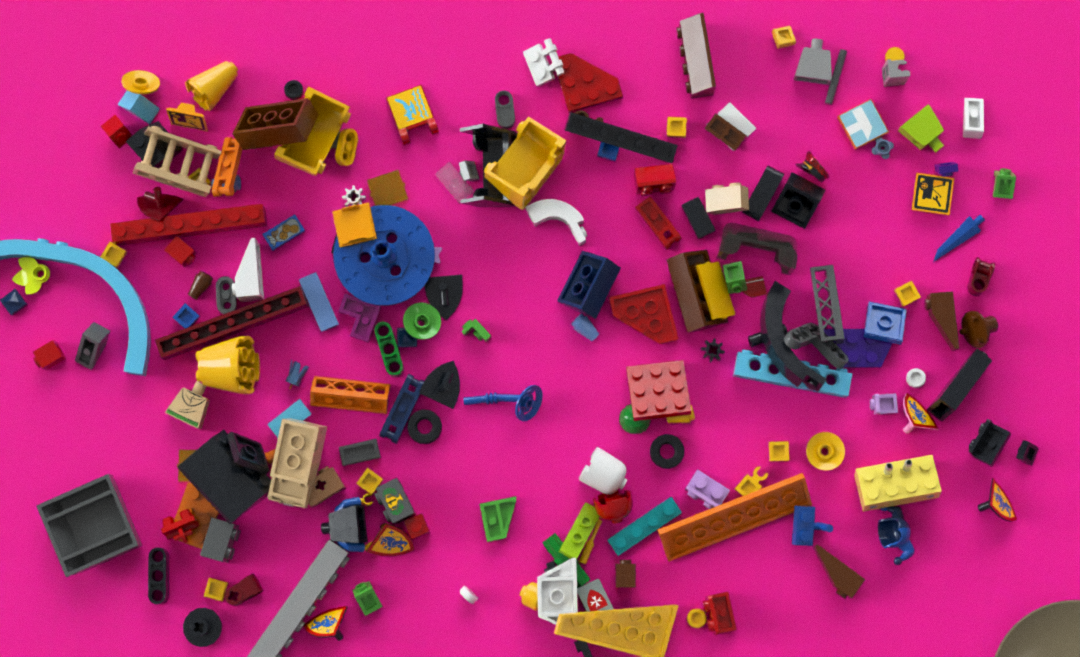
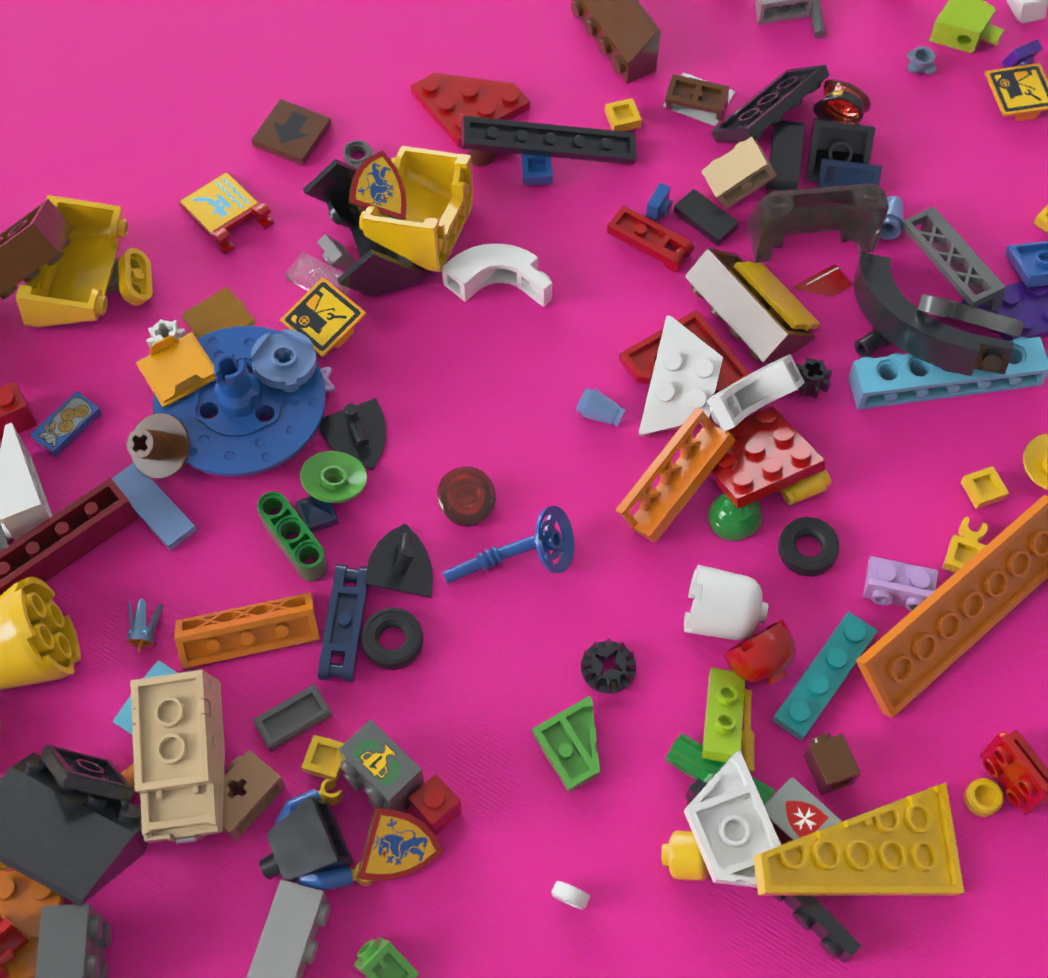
camera: 20 degrees left, 20 degrees down
(331, 271) = (159, 445): none -> piece
(365, 315) = (233, 497): magenta plate -> none
(404, 242) = (283, 375): none -> medium blue plate
(447, 214) = (324, 317): none -> piece
(469, 67) = (291, 132): none -> reddish brown tile
(480, 332) = (430, 460): bright green bracket -> none
(490, 358) = (466, 496): none -> clear red piece
(504, 144) = (379, 185): none -> shield
(533, 472) = (613, 680): none -> black gear
(538, 63) = (393, 98): white plate -> none
(589, 284) = (581, 345): dark blue slope -> none
(609, 391) = (678, 479): none -> orange fence
(635, 330) = (681, 379): none -> white wing
(654, 179) = (622, 182): red slope -> none
(670, 351) = (754, 391): none -> white arch
(672, 202) = (659, 203): none -> blue plate
(735, 277) = (798, 272): bright green bracket -> none
(768, 153) = (770, 104): none -> black plate
(795, 221) = (844, 173): none -> dark blue tile
(808, 258) = (893, 219): none -> medium blue cone
(862, 124) = (879, 43): tile -> none

